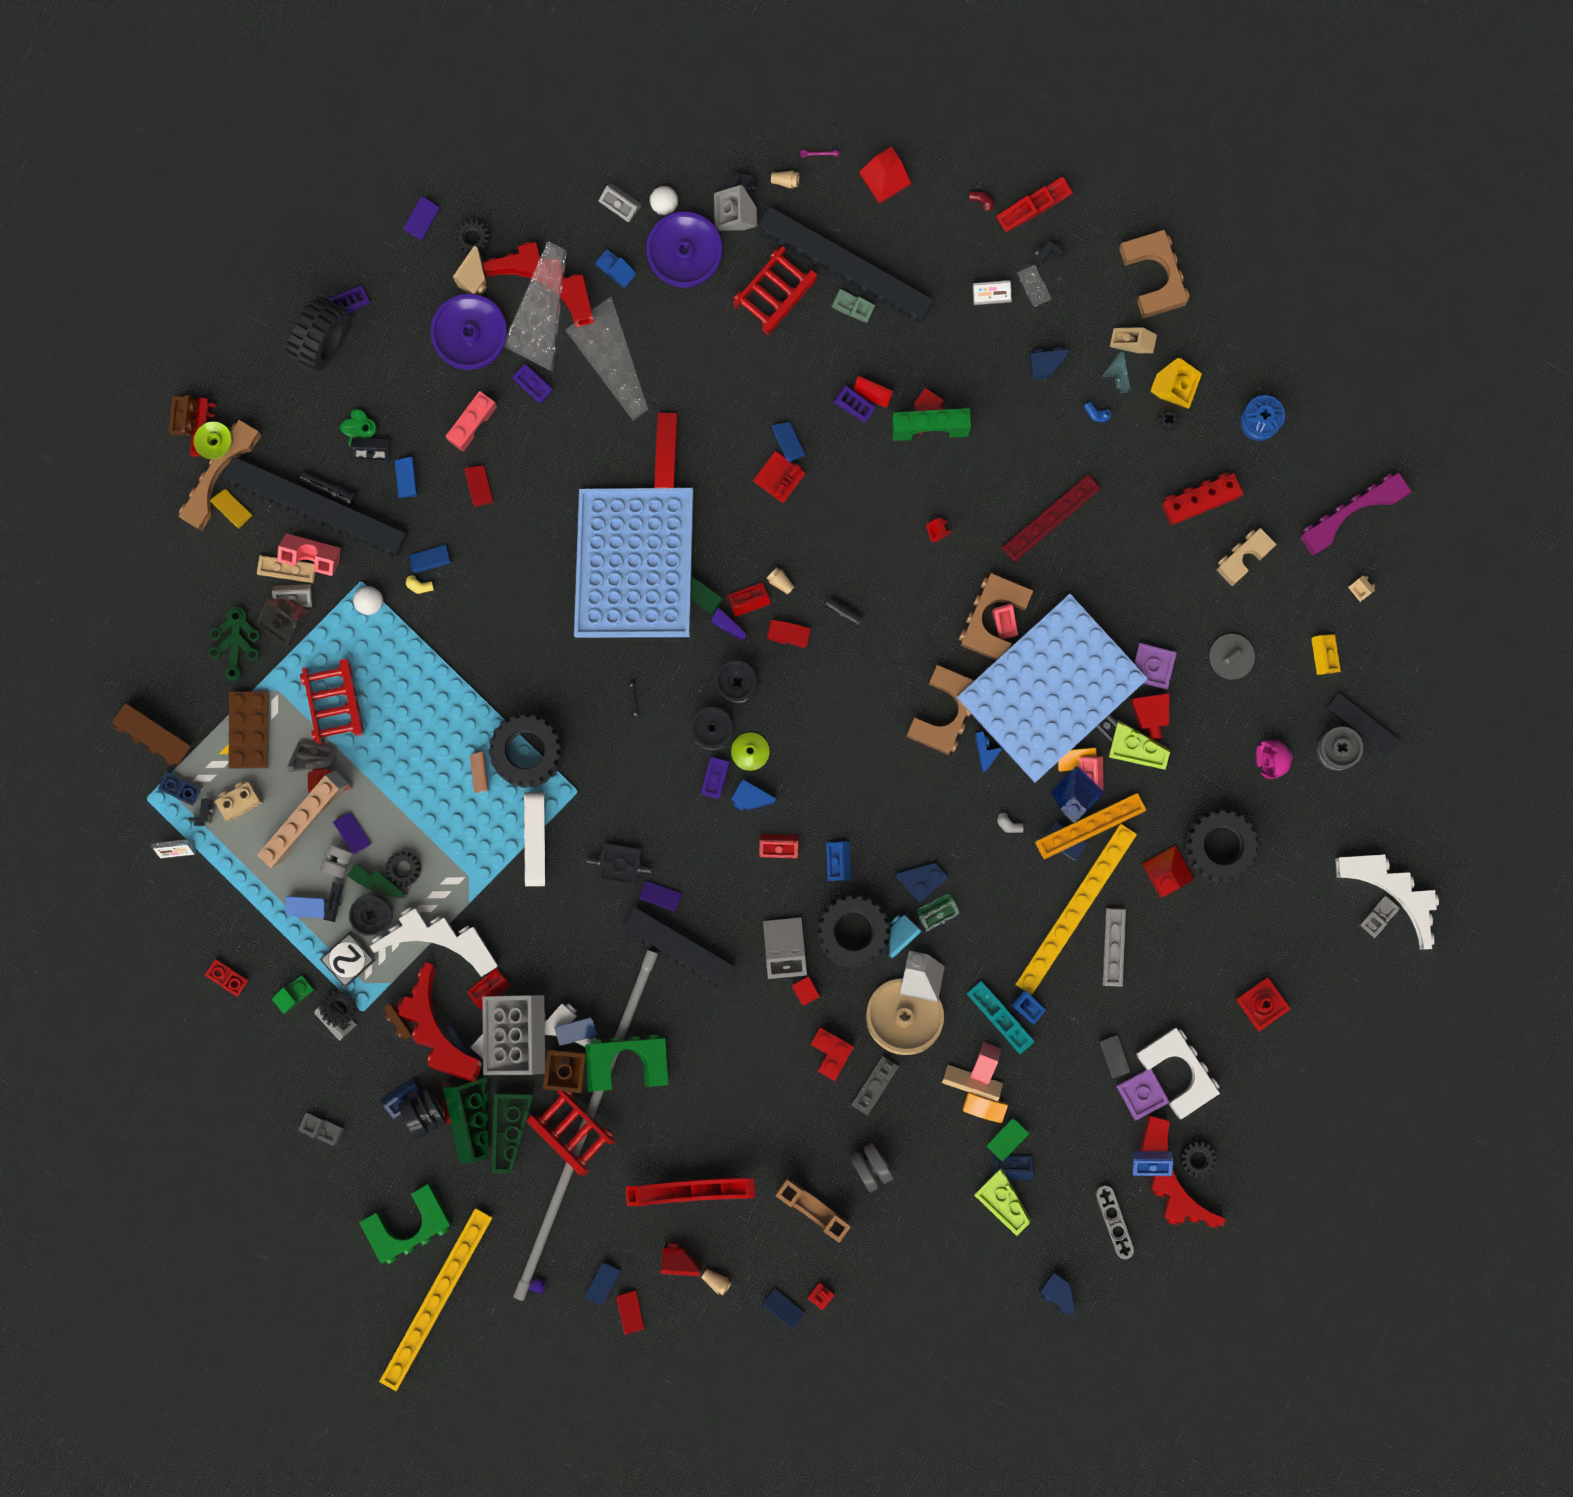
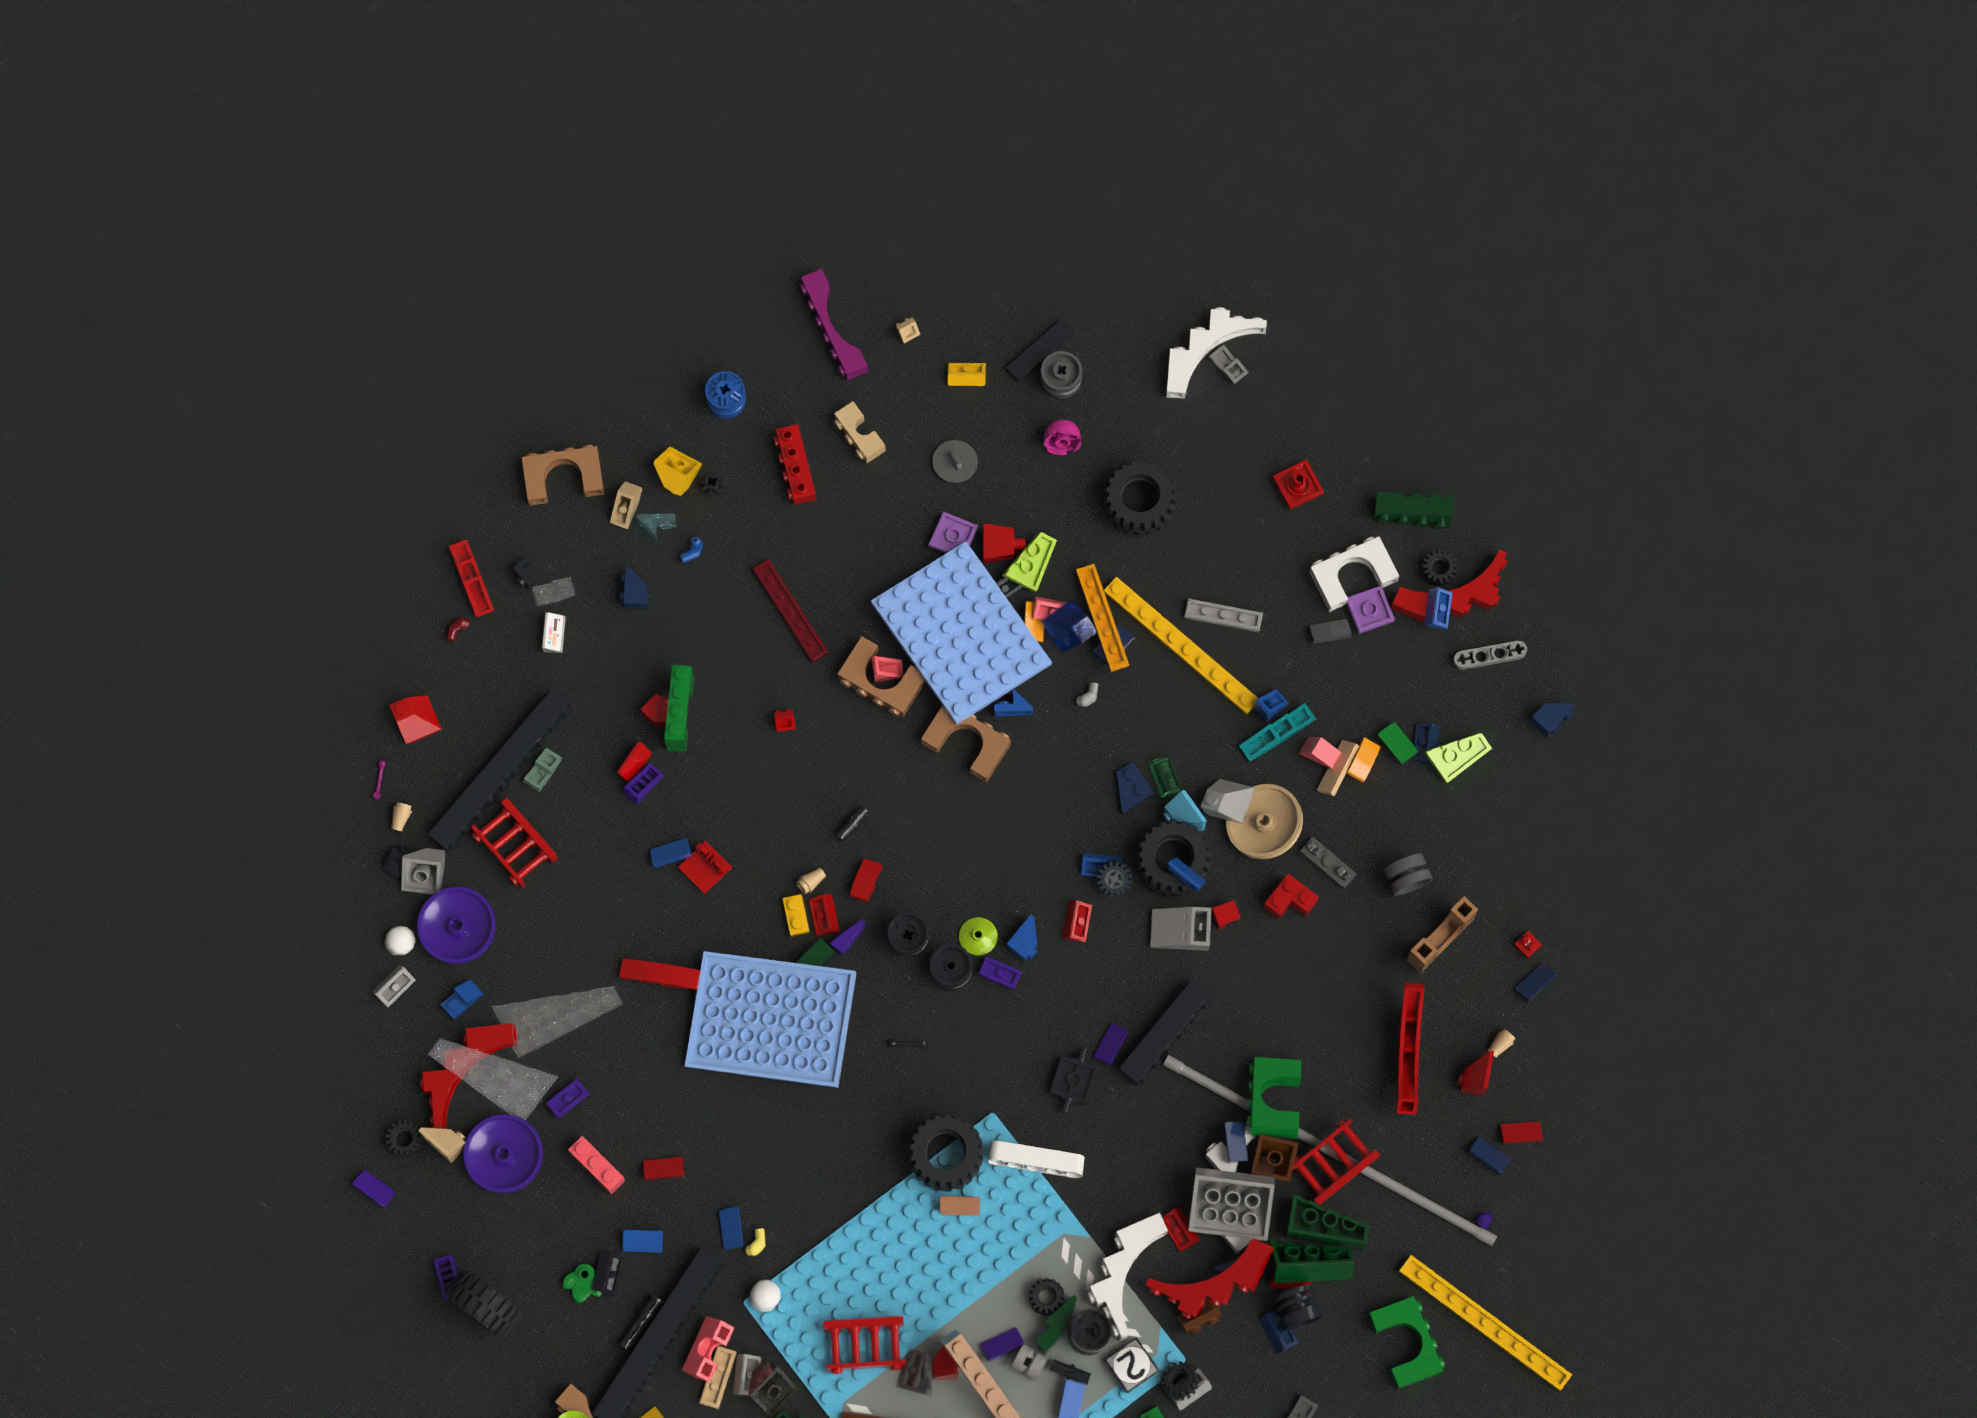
camera: 85 degrees left, 10 degrees down
(744, 572) = (796, 915): none -> yellow plate
(819, 874) = (1112, 884): none -> black wheel
(834, 945) = (1185, 874): none -> blue slope
(1167, 871) = (1157, 553): red slope -> none
(1254, 1125) = (1414, 509): none -> dark green wedge

